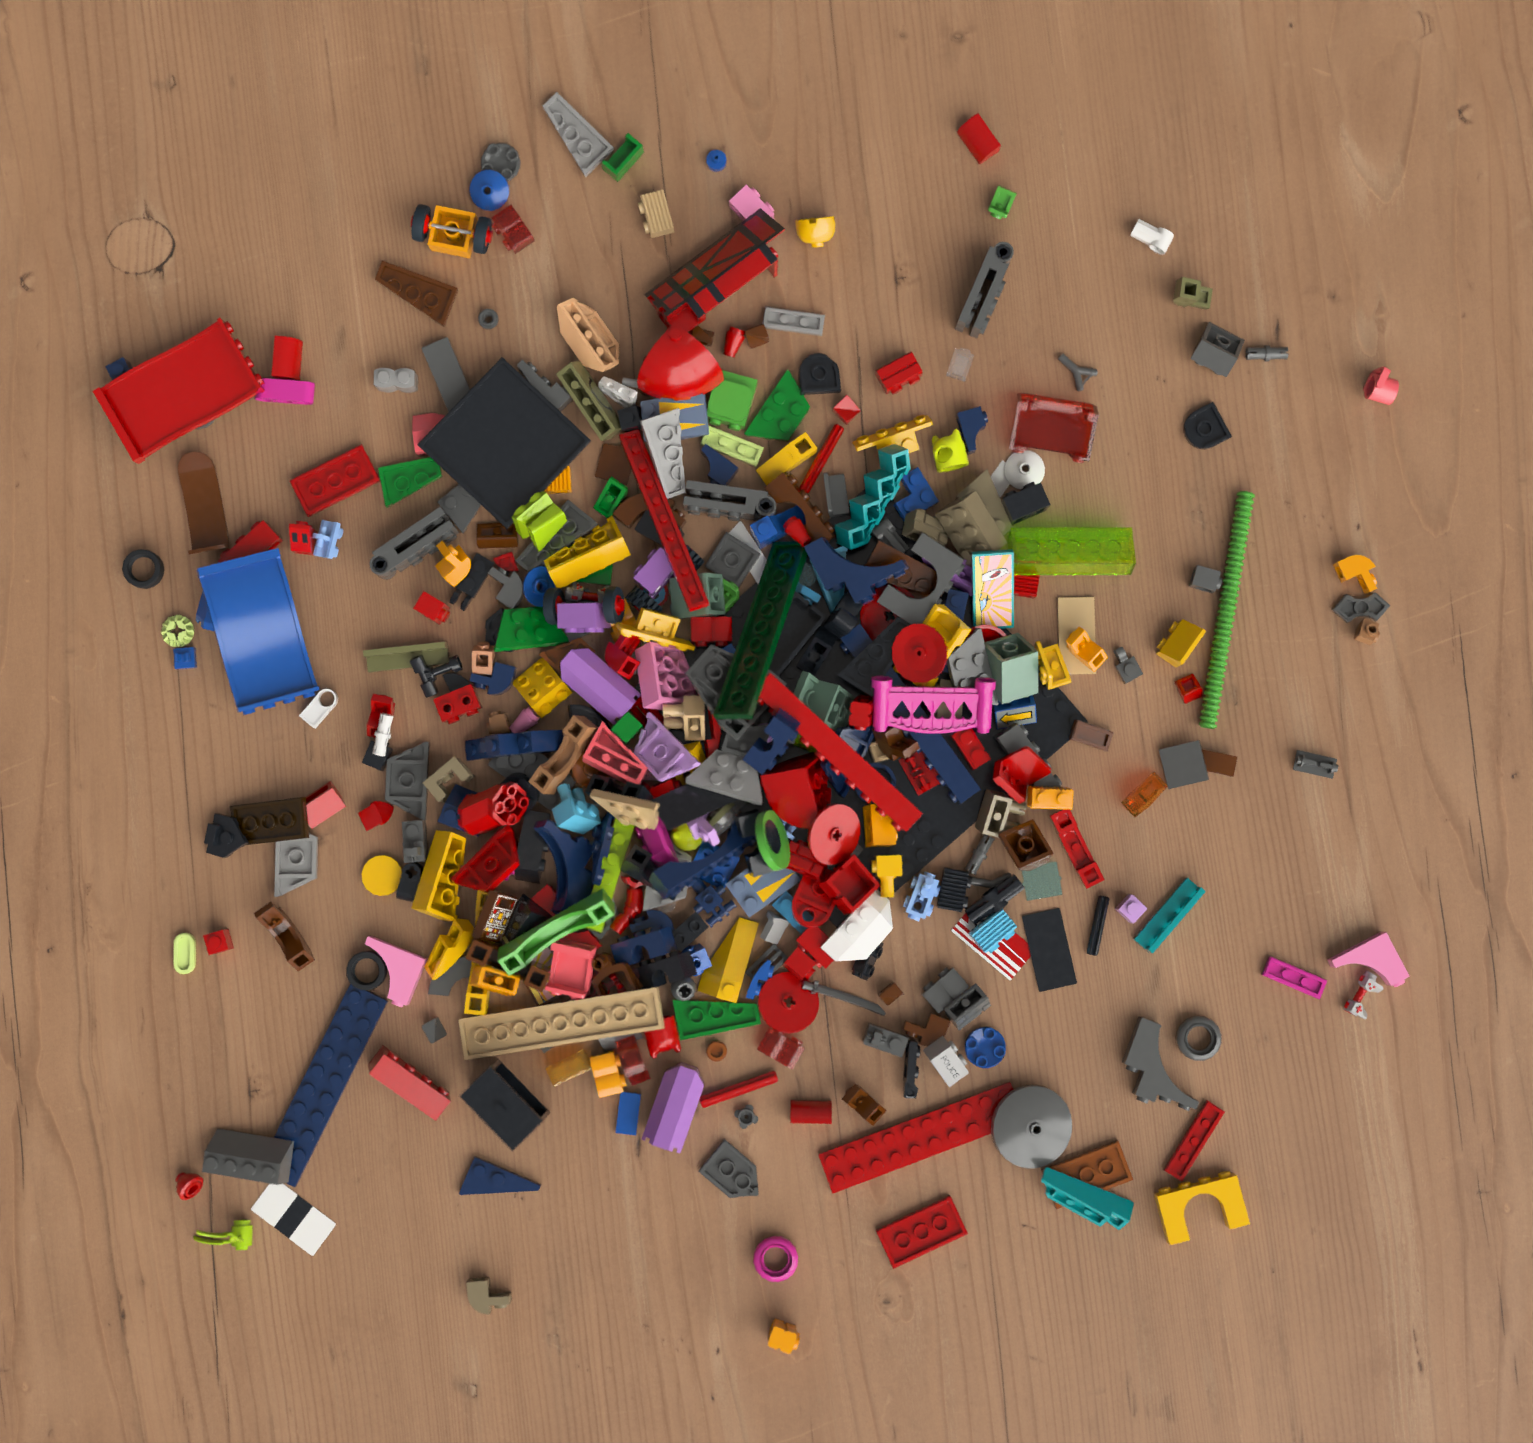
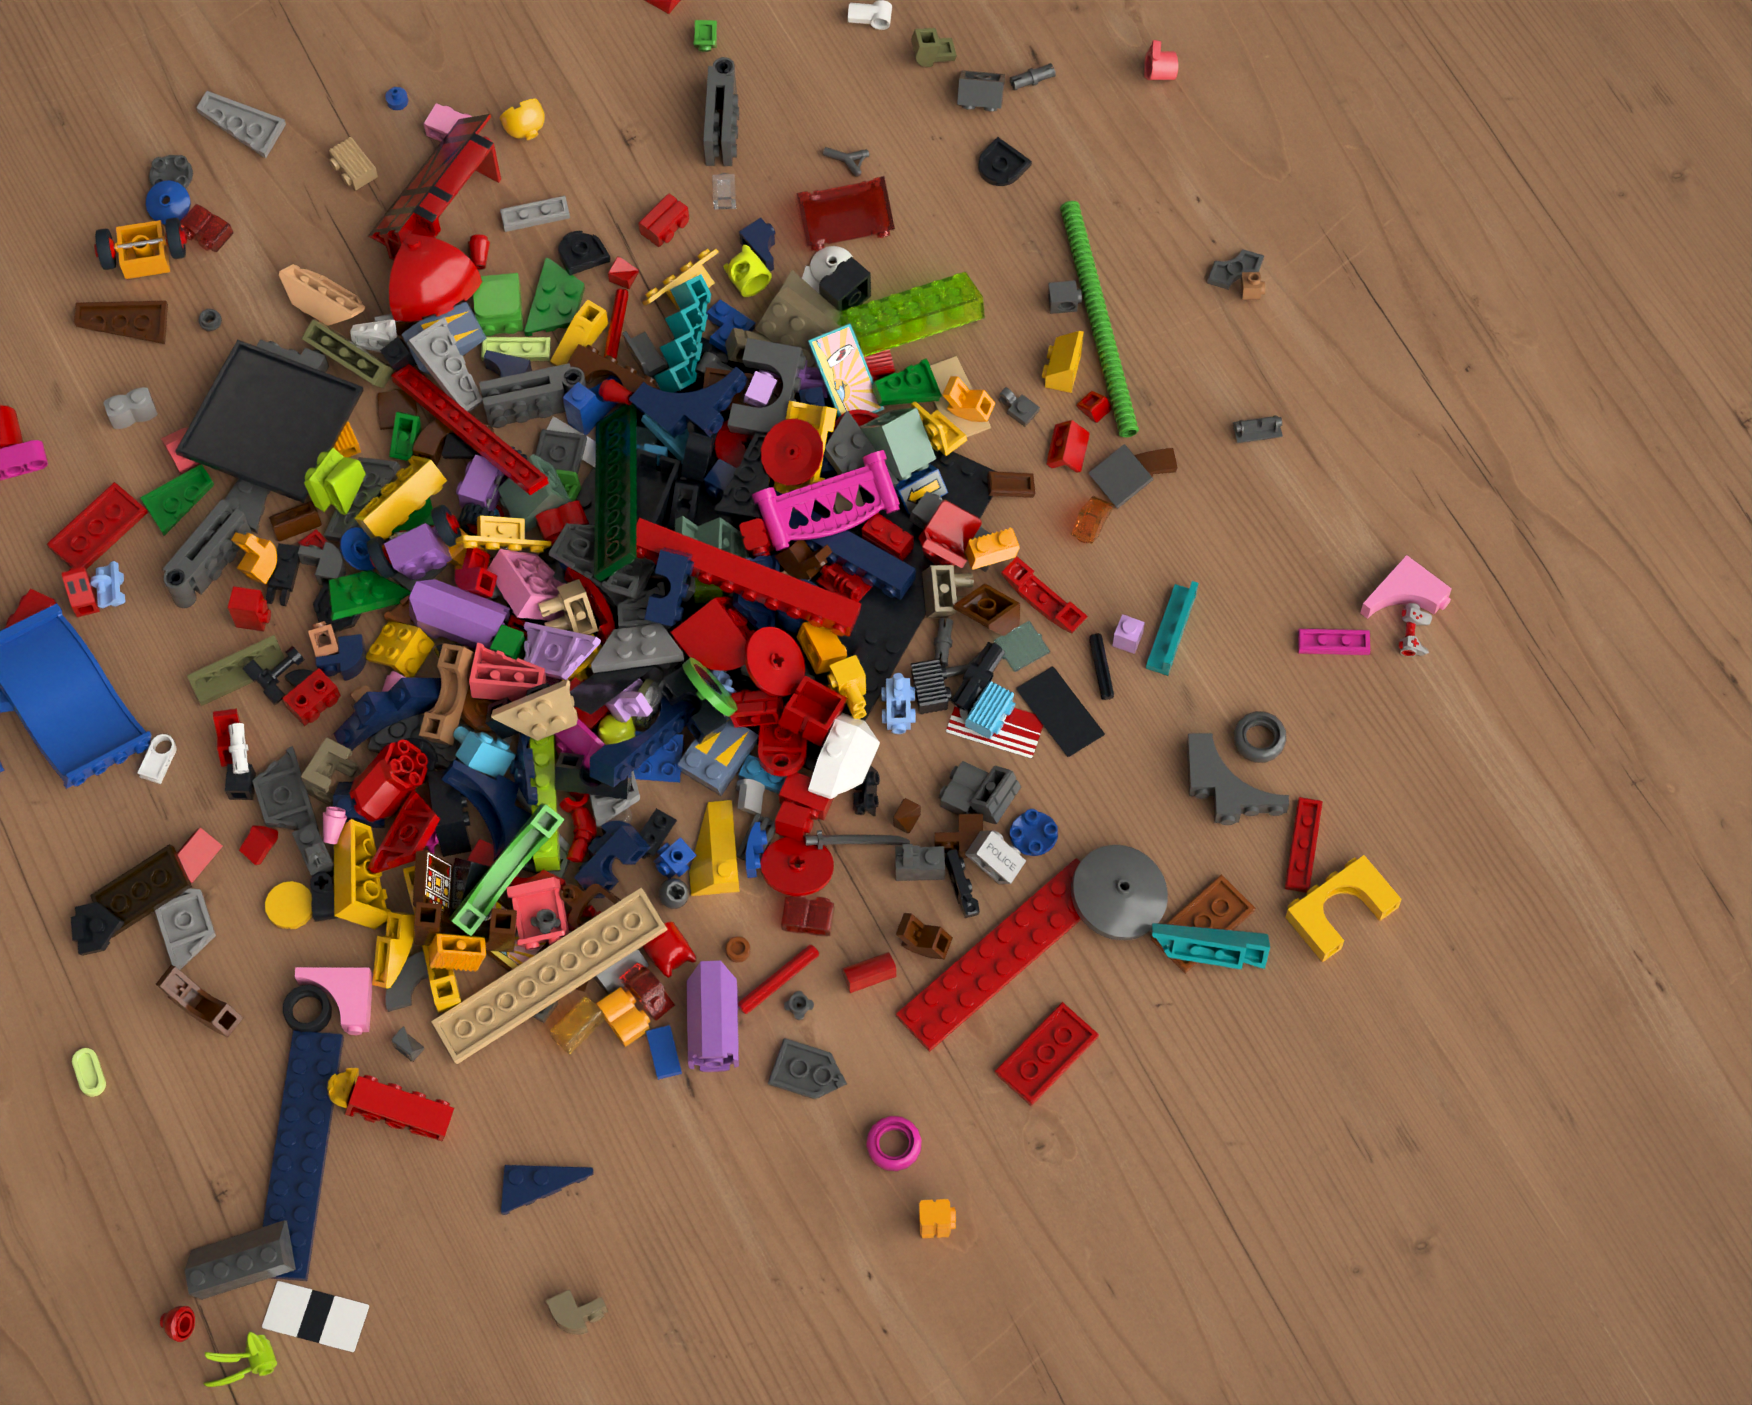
camera: 20 degrees left, 20 degrees down
(218, 941) = (124, 1040): red brick -> none
(371, 1047) = (341, 1086): none -> yellow plate
(436, 829) = (333, 823): none -> bright pink cone
(446, 371) = (180, 381): dark grey piece -> none
(505, 1104) = (518, 1077): black container -> none
(574, 973) = (545, 921): none -> dark grey plate
(623, 158) = (299, 127): green panel -> none
(677, 967) = (656, 860): black arch -> none
(708, 899) = (667, 793): dark blue piece -> none
(713, 1017) = (713, 917): green wing -> none
(756, 336) = (502, 237): reddish brown slope -> none
(916, 580) = (760, 389): none -> lavender brick
(1042, 615) = (910, 385): none -> green wing
(1151, 718) = (1068, 446): none -> red panel
(1357, 566) = (1213, 232): light orange brick -> none

